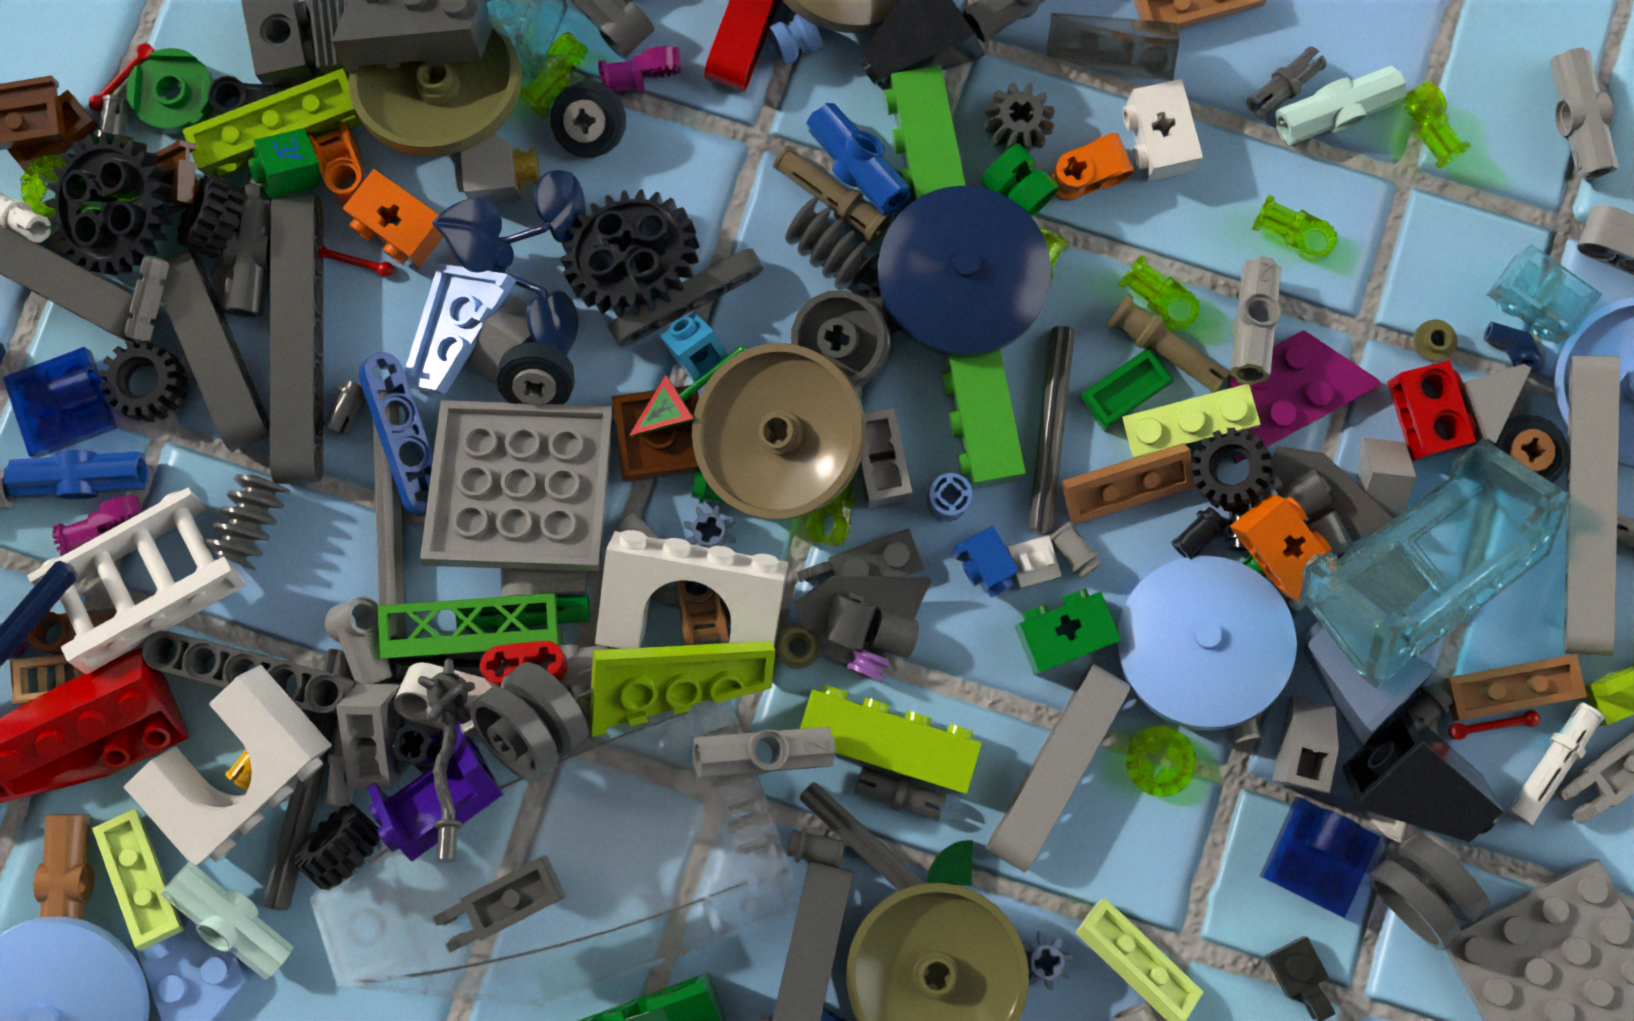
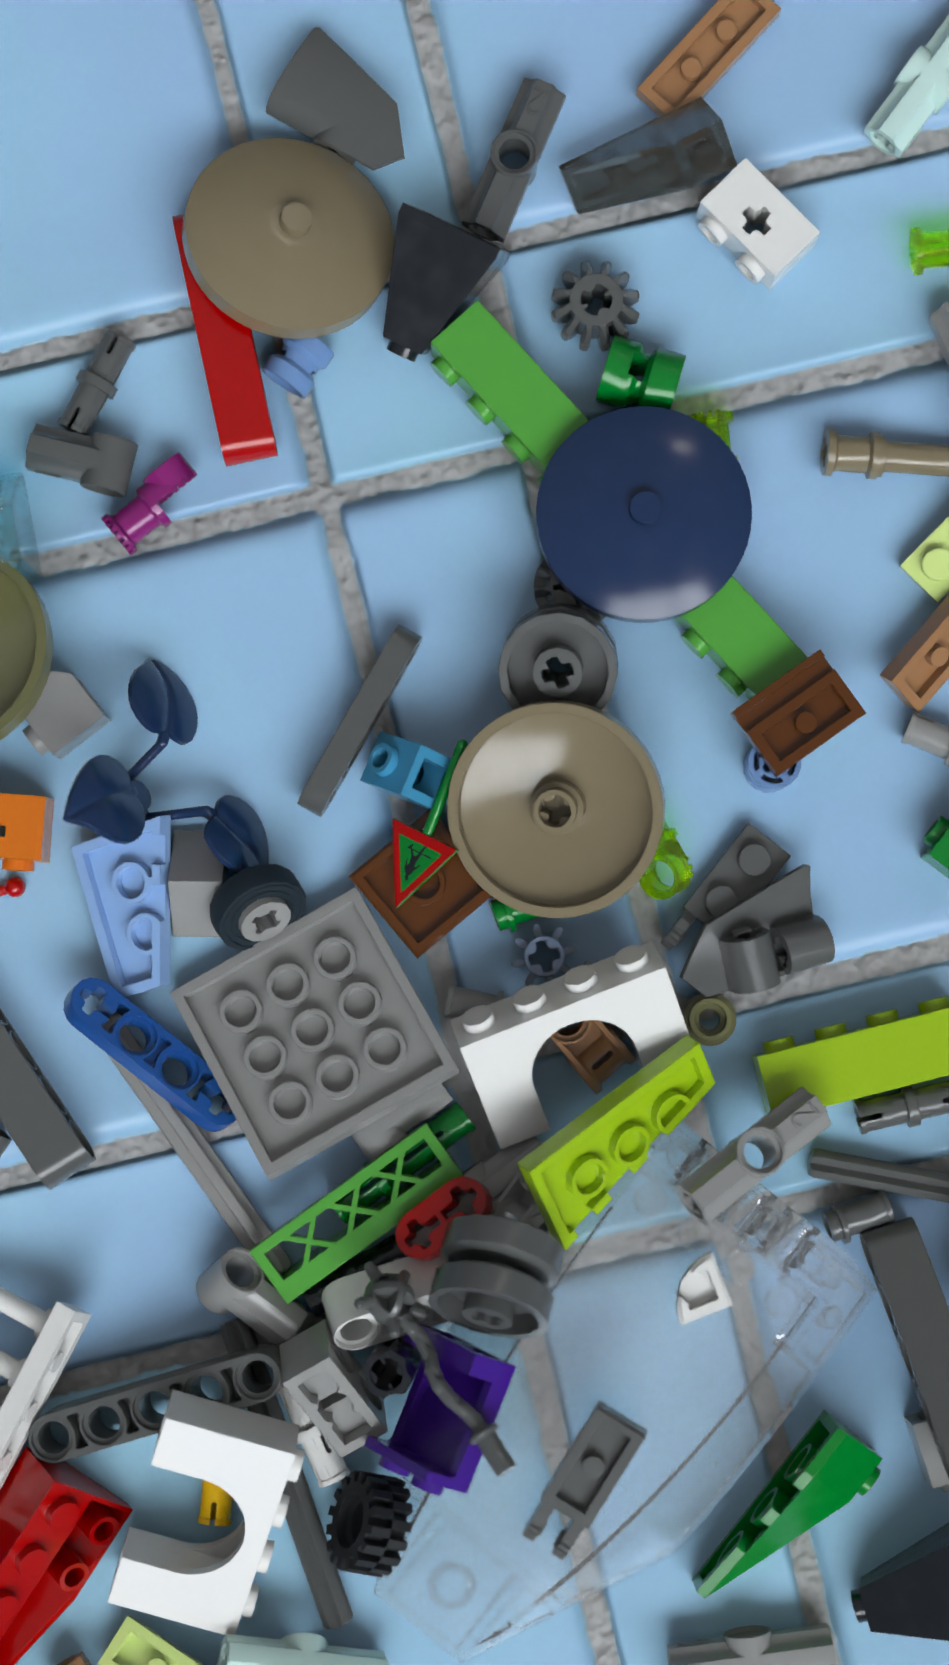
camera: 30 degrees left, 5 degrees up
(246, 519) = (47, 1246): dark grey piece -> none
(346, 408) = (72, 1062): dark grey pin -> none
(526, 166) = (97, 682): clear yellow bush -> none
(552, 80) = (63, 573): clear neon green connector -> none
(602, 114) = (132, 572): black wheel -> none
(630, 240) = (272, 710): black gear -> none
(667, 824) = (701, 1290): none -> white tile
(829, 246) = (478, 570): dark grey piece -> none
(845, 203) = (469, 513): dark tan pin -> none
(858, 159) = (451, 457): blue piece -> none
(868, 665) = (796, 994): medium lavender bush -> none
(883, 461) = (688, 776): light grey brick -> none
(986, 467) = (798, 713): none -> reddish brown plate
(987, 561) = (853, 808): blue brick -> none
(1035, 562) = (900, 777): white tile -> none
(1051, 430) = (833, 622): dark grey axle -> none
(1096, 166) = (708, 308): orange piece -> none
(1126, 388) = (885, 531): green tile -> none
(1160, 293) = (859, 406): clear neon green connector -> none
(1286, 82) = (855, 88): dark grey pin -> none

